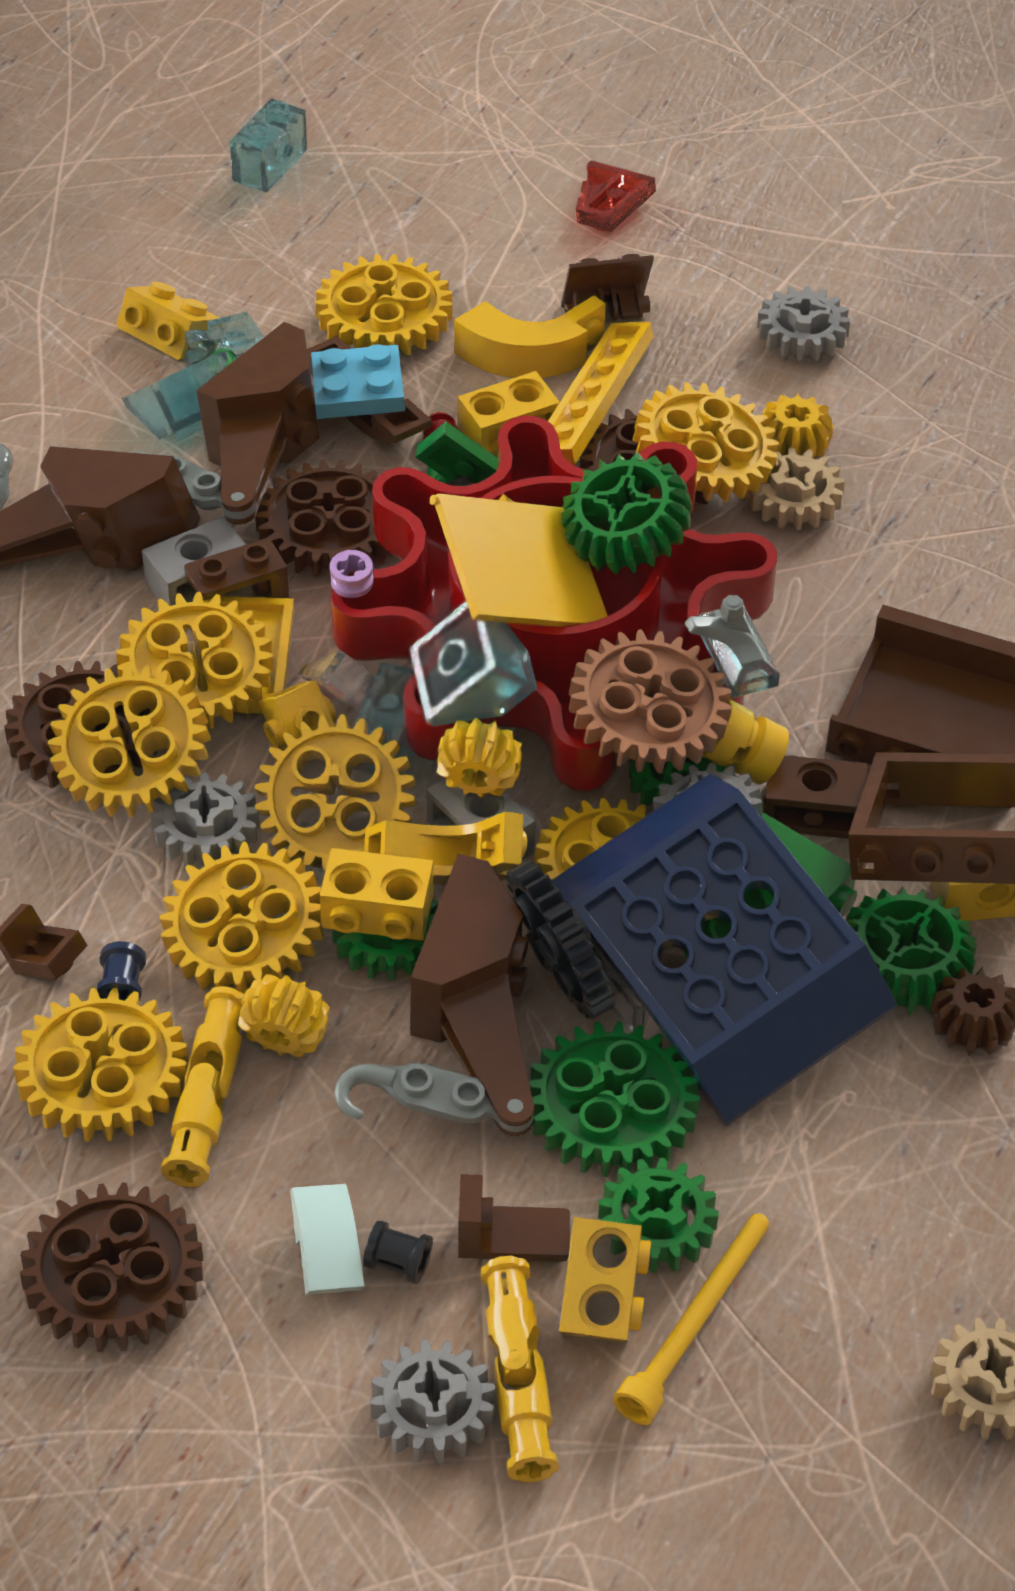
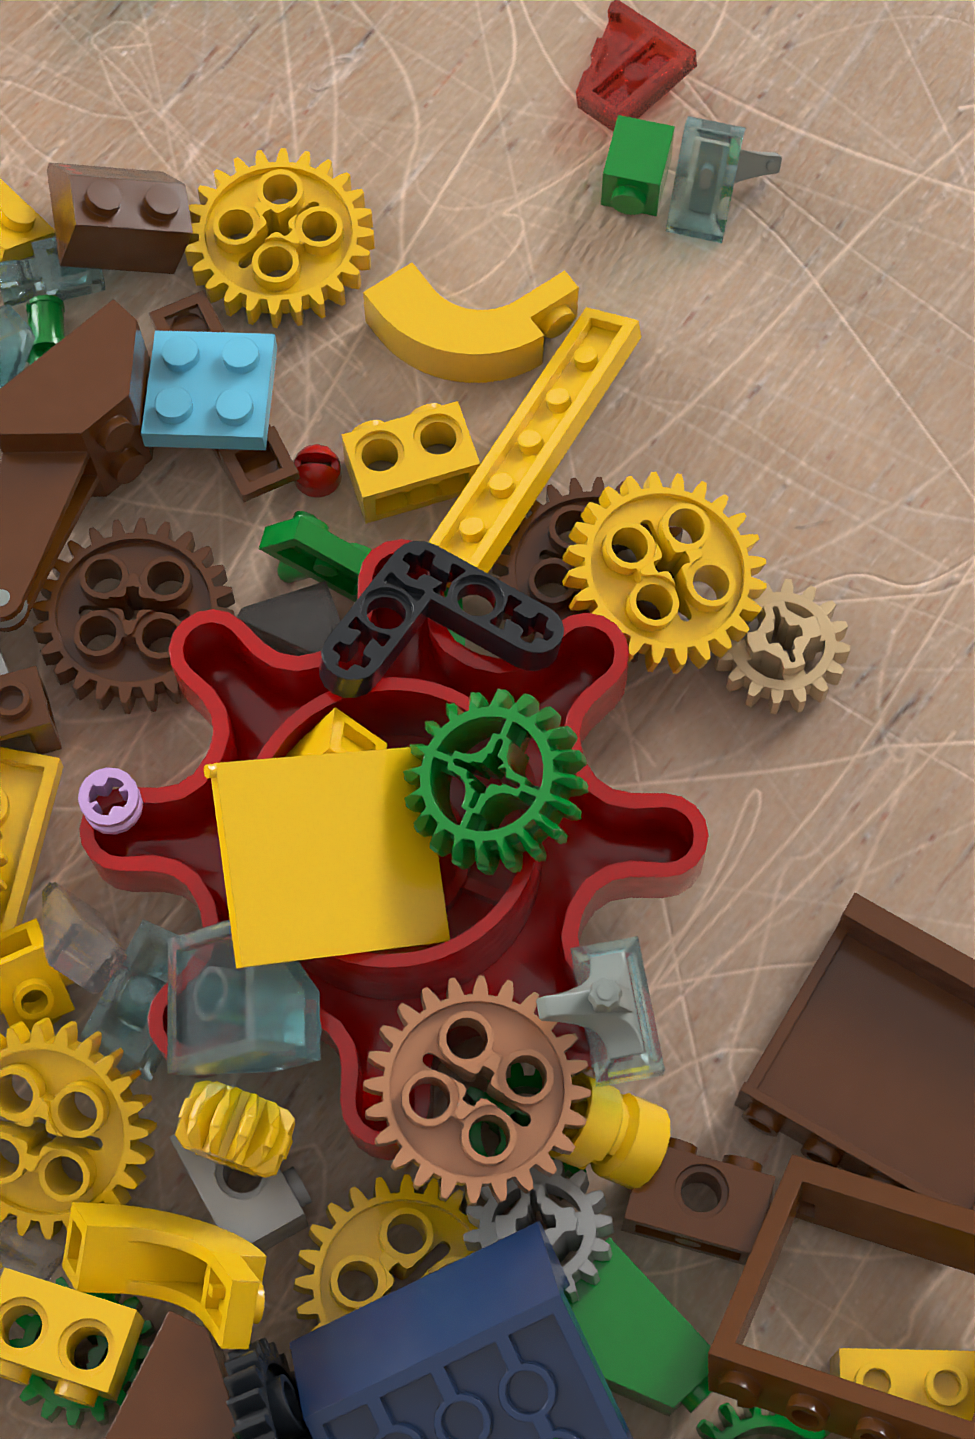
camera: 10 degrees right, 20 degrees up
(267, 295) = (118, 218): none -> reddish brown slope
(547, 429) = (421, 600): none -> black beam
(611, 282) = (615, 243): reddish brown hinge -> none
(628, 234) = (637, 166): none -> green brick
(682, 239) = (706, 176): none -> clear light blue piece
(799, 425) = (804, 536): yellow gear -> none
(803, 323) = (825, 349): light grey gear -> none

